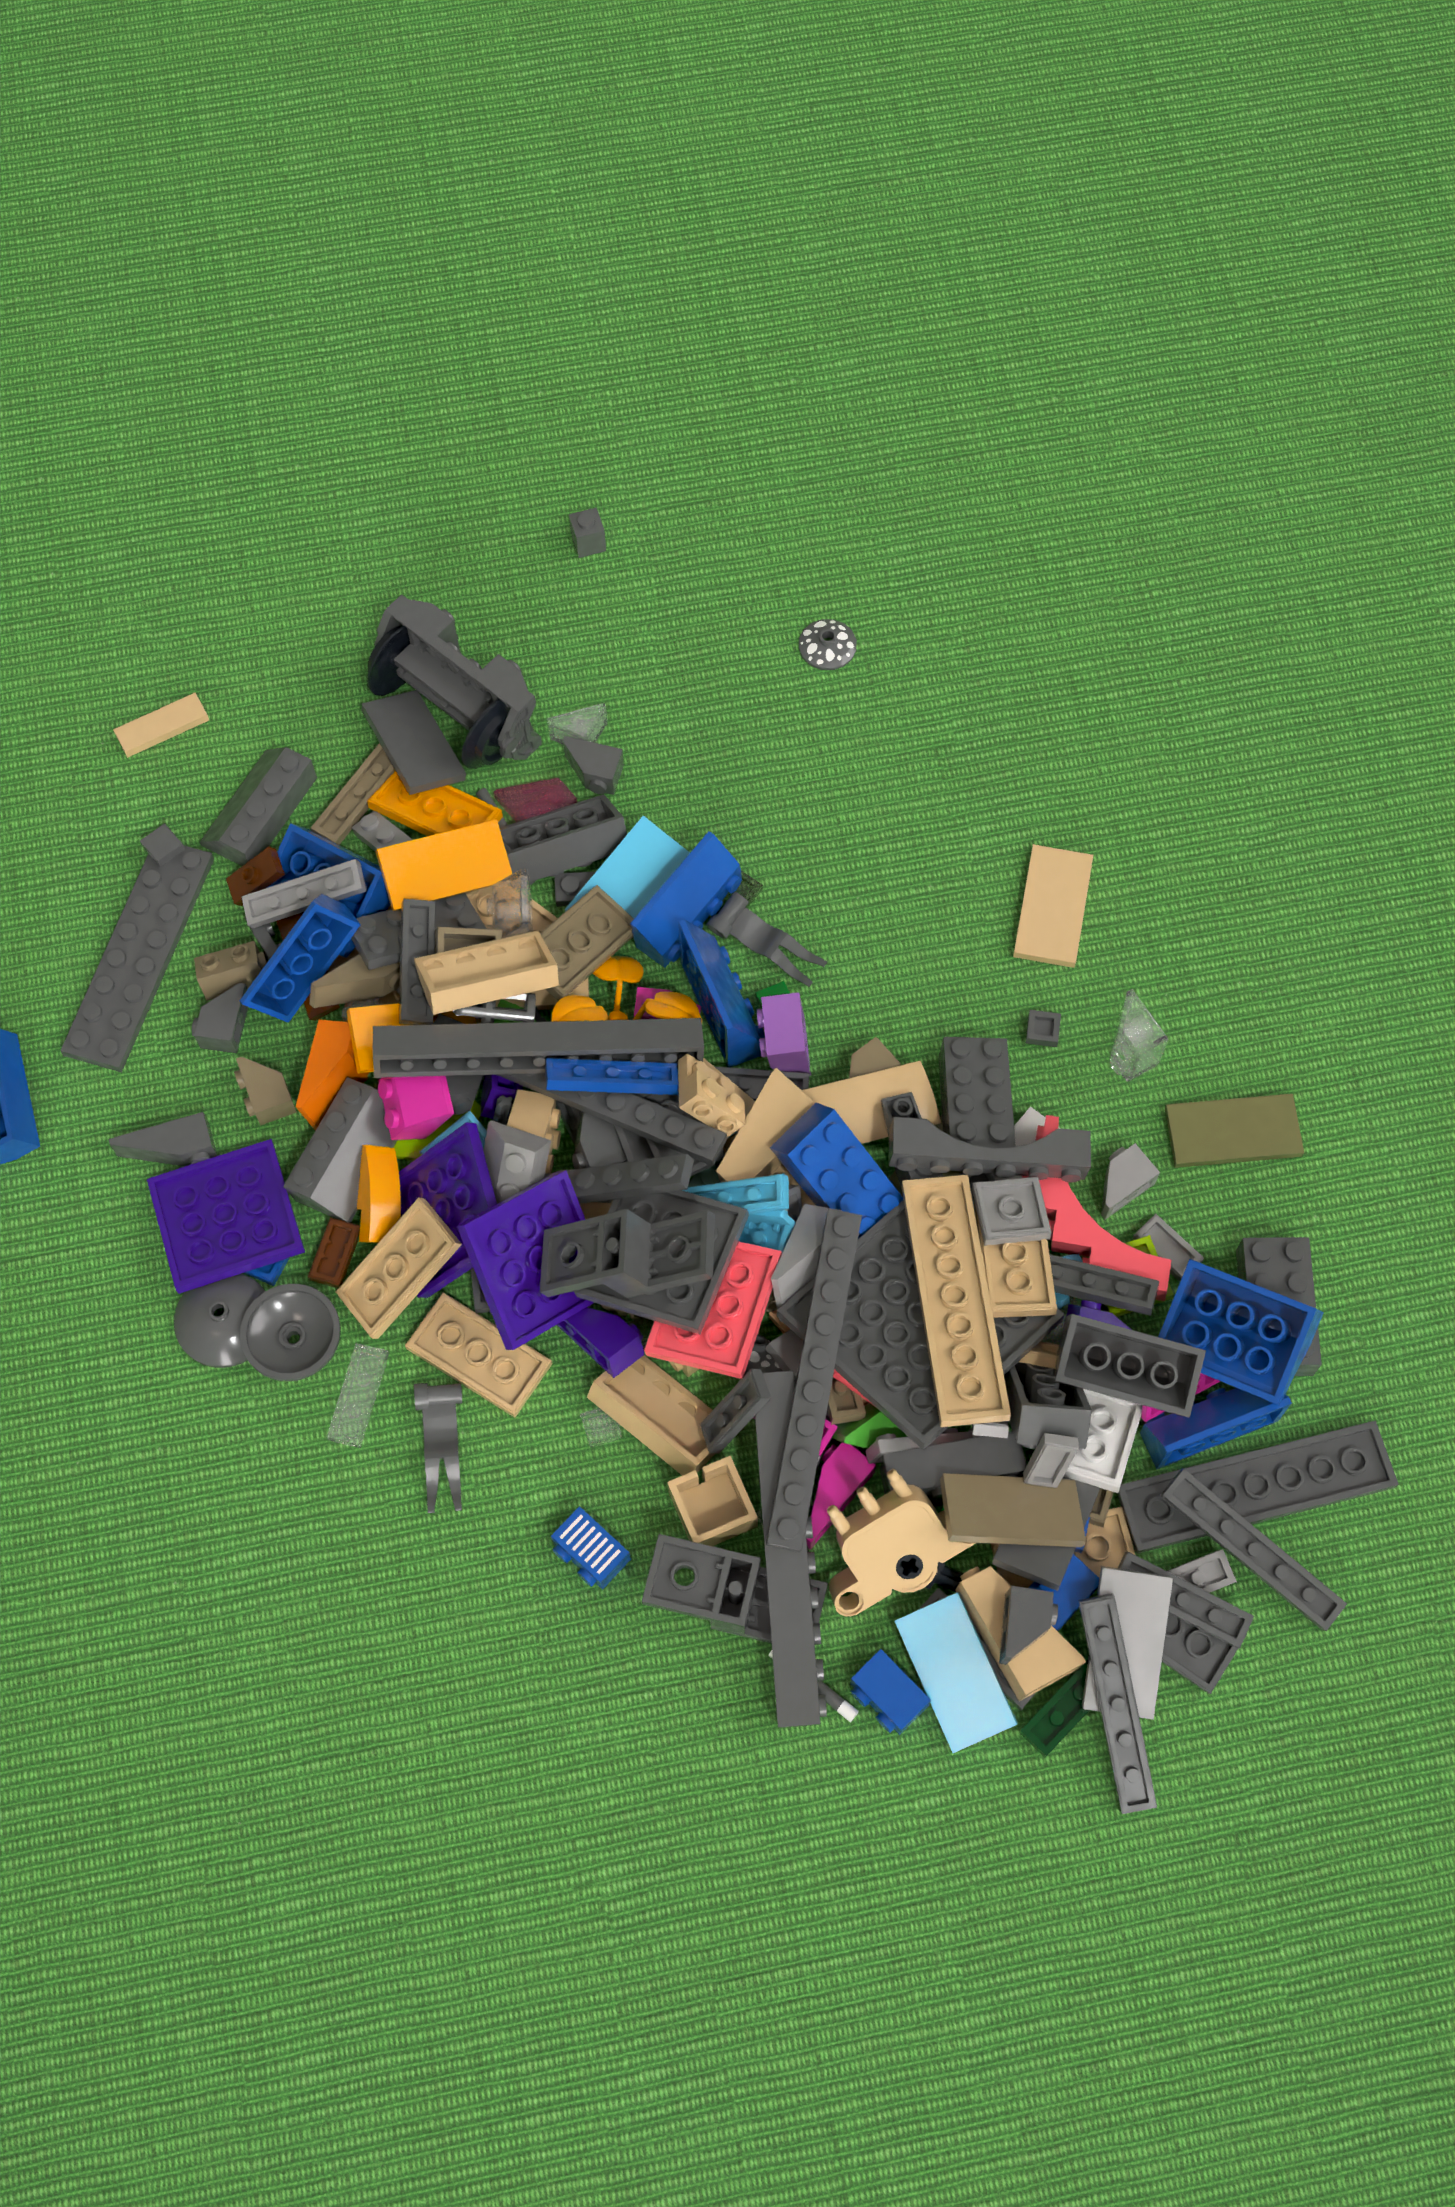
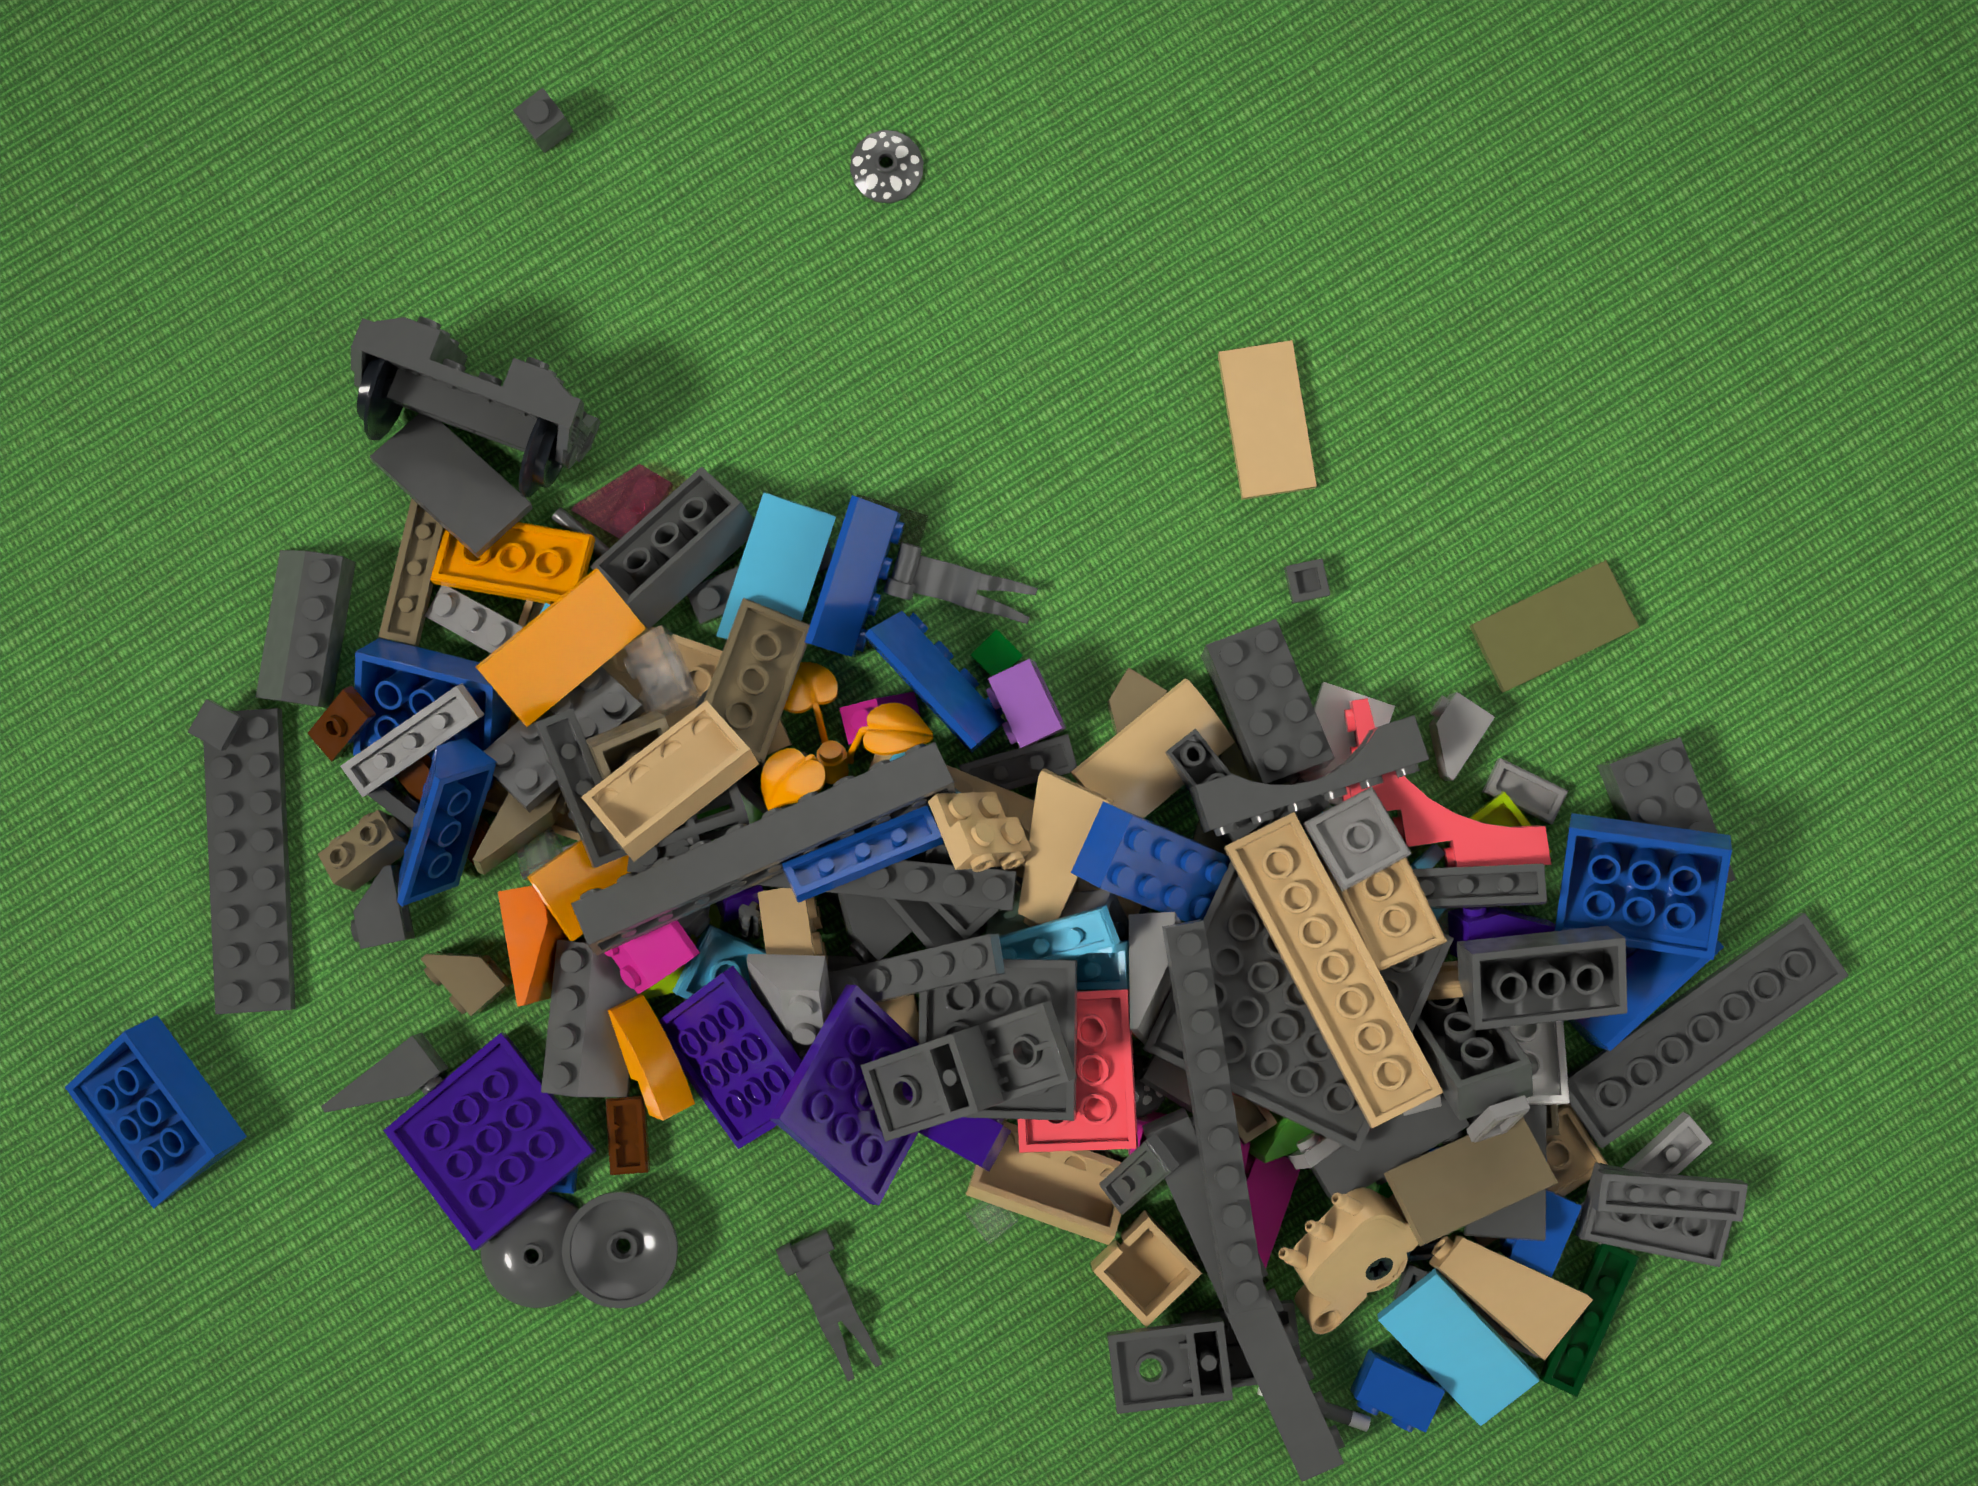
camera: 25 degrees left, 20 degrees up
(161, 724) = (141, 562): tan tile -> none
(357, 1395) = (719, 1281): clear tile -> none
(398, 1268) = (708, 1138): tan tile -> none
(475, 1355) = (801, 1188): tan tile -> none
(579, 724) = (639, 391): clear slope -> none
(589, 1548) = (1034, 1358): blue brick -> none
(594, 764) = (677, 433): dark grey slope -> none
(1025, 1620) = (1523, 1292): dark grey slope -> none
(1117, 1703) = (1635, 1324): tile -> none
(1137, 1040) = (1415, 564): clear slope -> none
(1143, 1616) = (1628, 1262): tile -> none
(1253, 1549) = (1720, 1105): dark grey plate -> none

